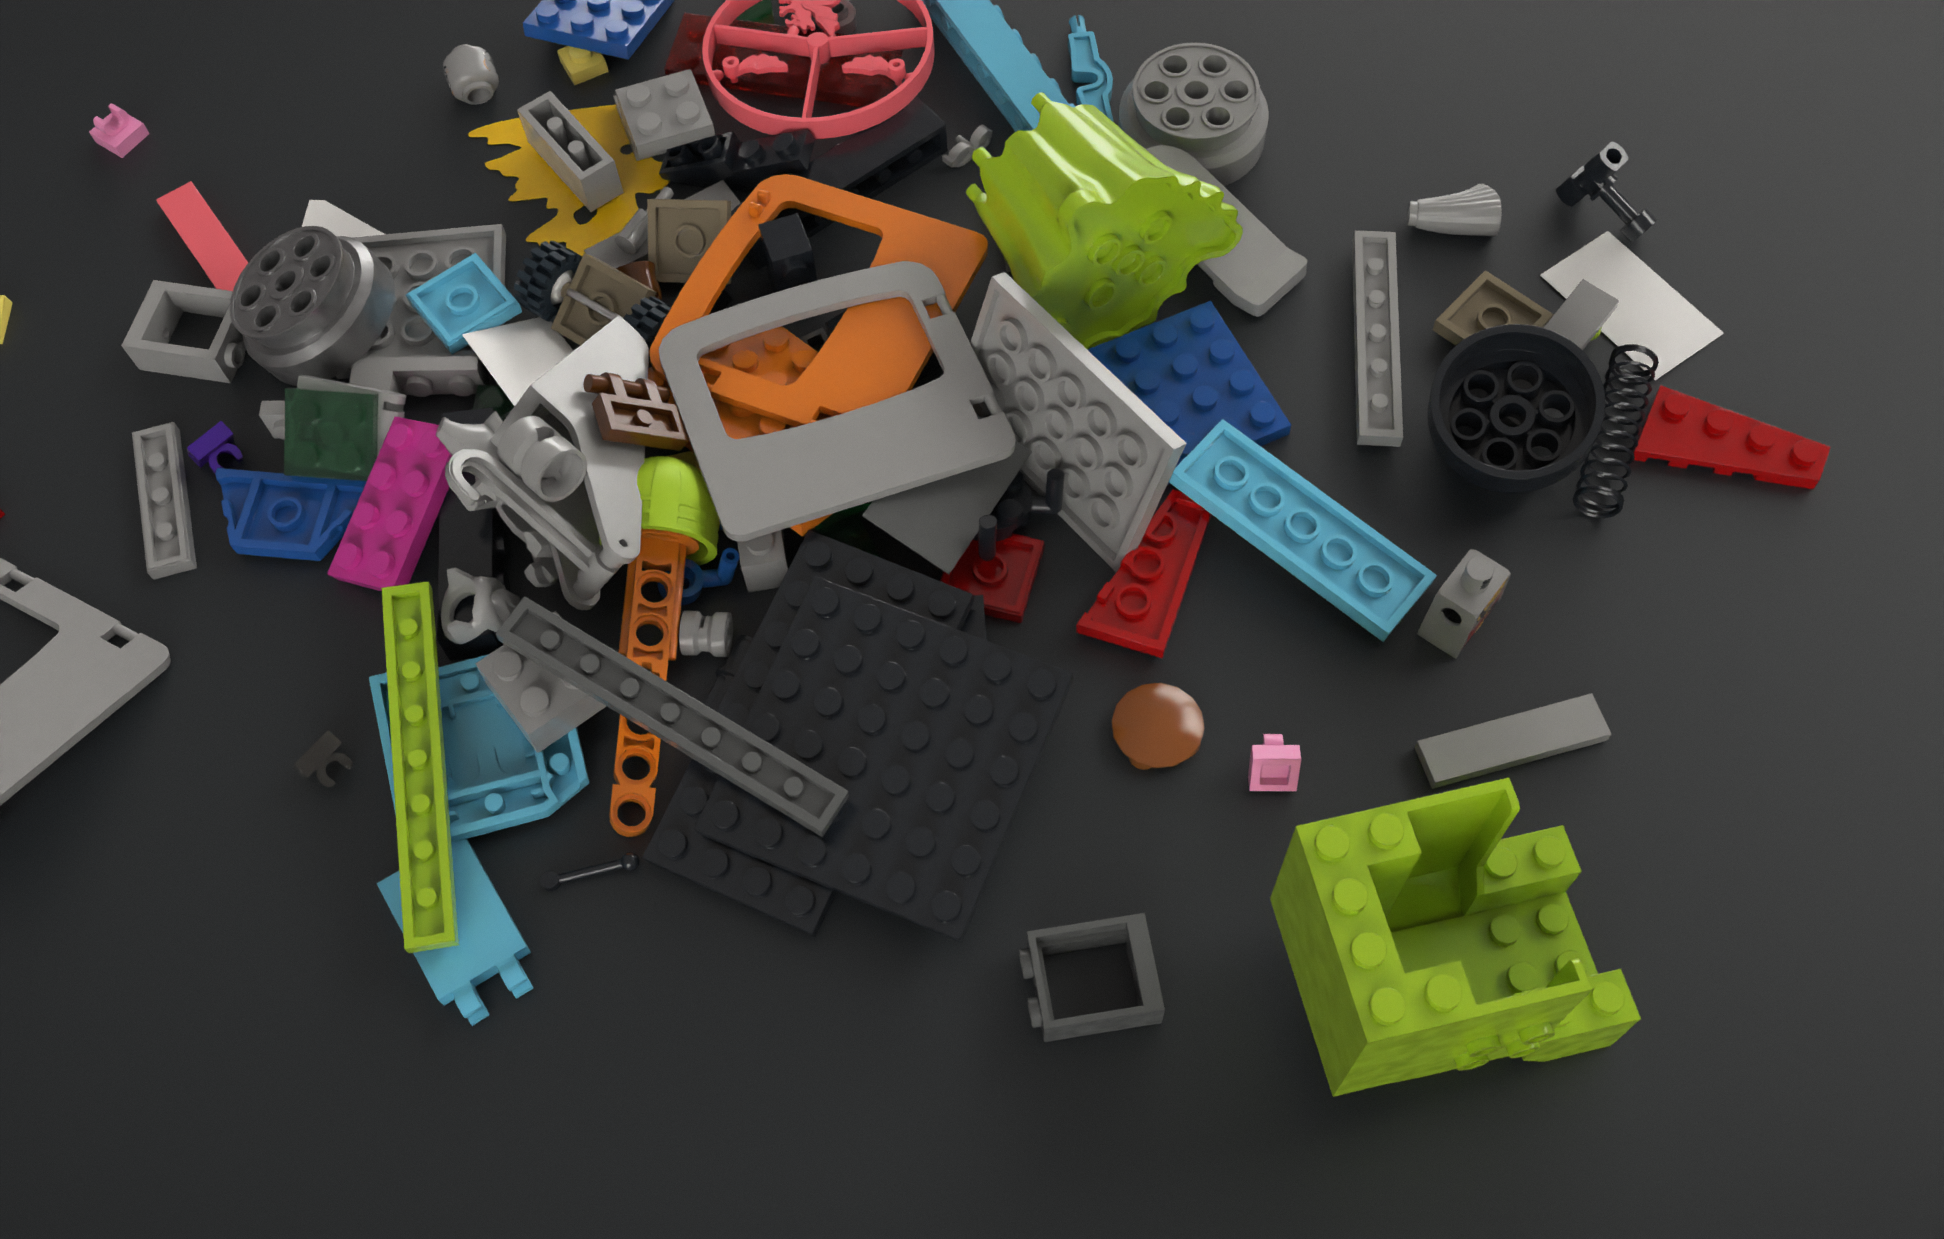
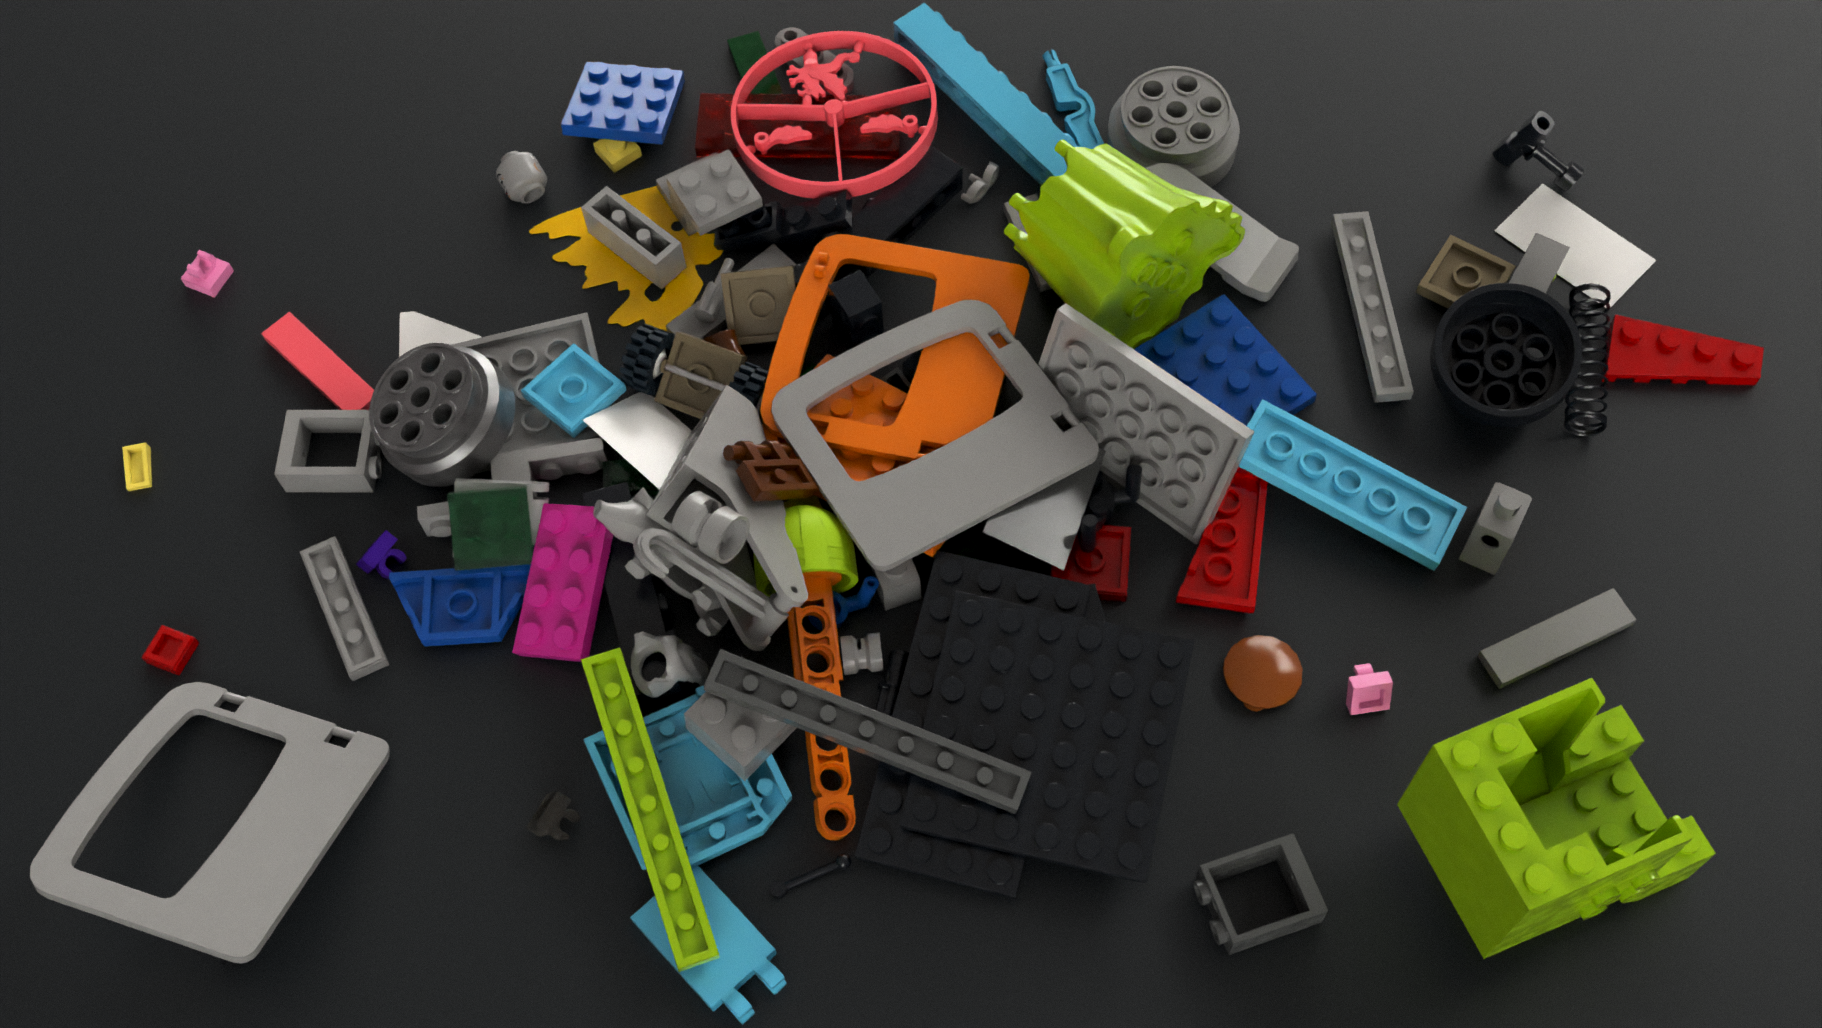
camera: 10 degrees left, 0 degrees up
(1463, 213) = (1425, 184): light grey piece -> none

